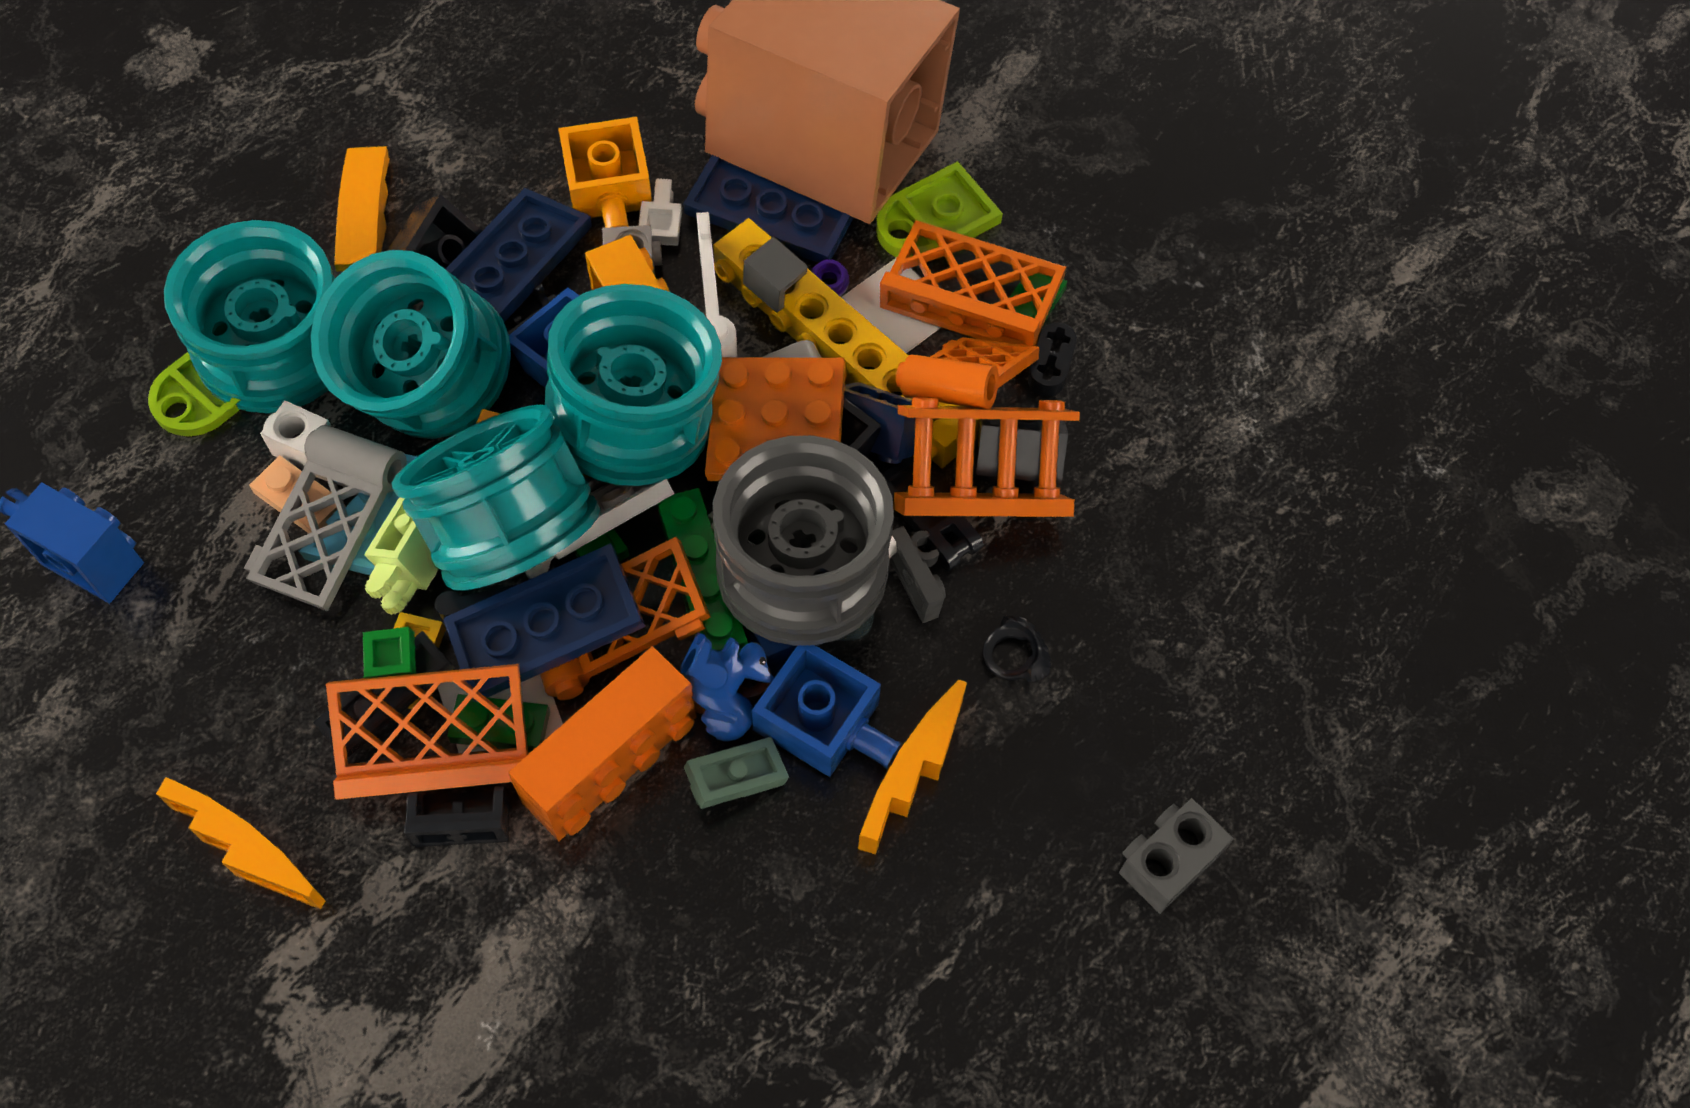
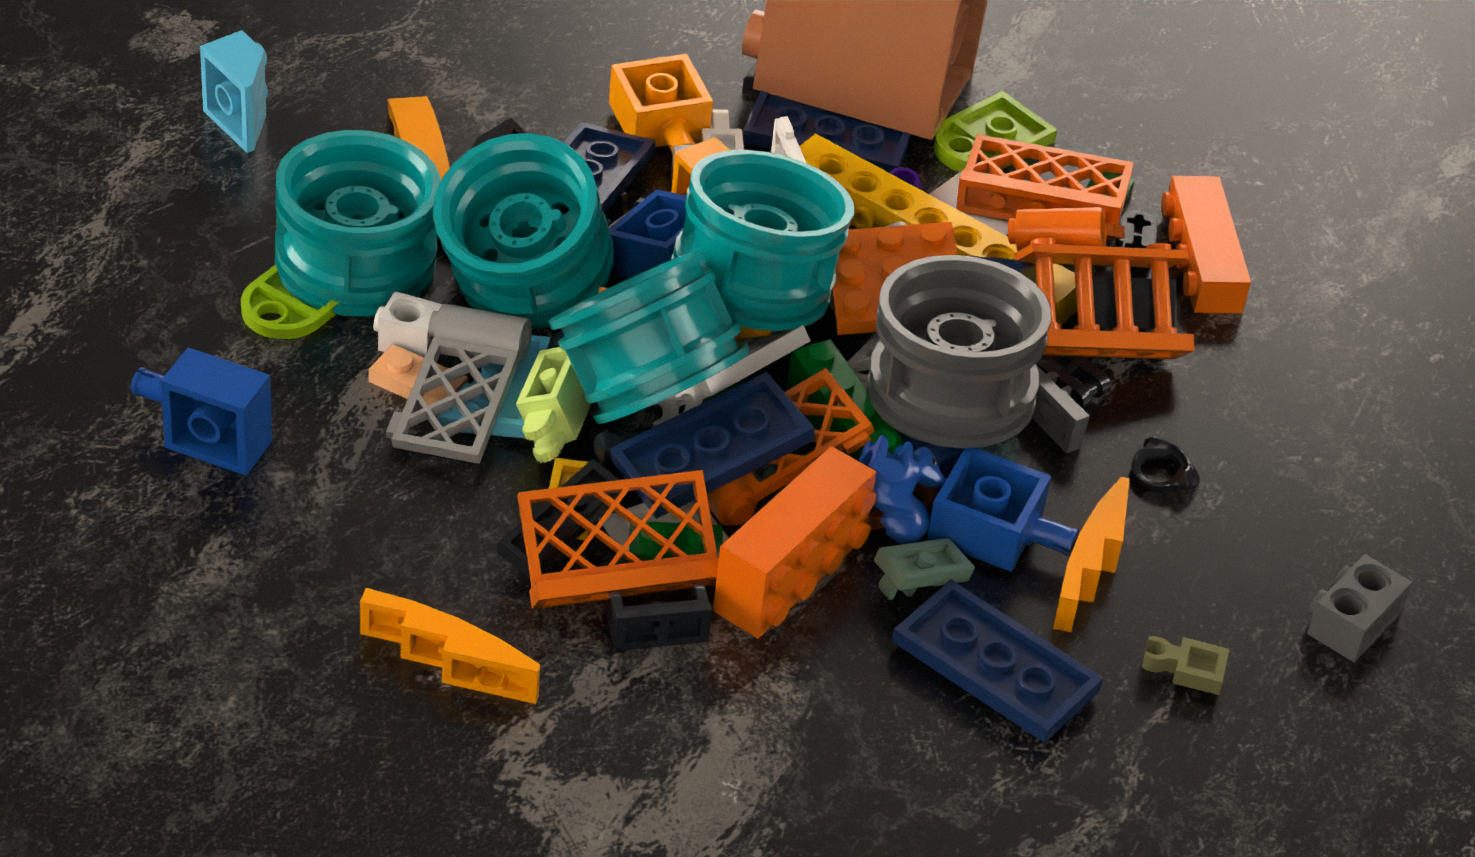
camera: 10 degrees left, 20 degrees down
(196, 135) = (235, 86): none -> medium azure slope
(389, 652) = (569, 467): green plate -> none
(772, 272) = (857, 166): dark grey panel -> none
(786, 897) = (997, 660): none -> dark blue plate
(989, 916) = (1193, 663): none -> olive plate
(1121, 370) = (1203, 225): none -> brick

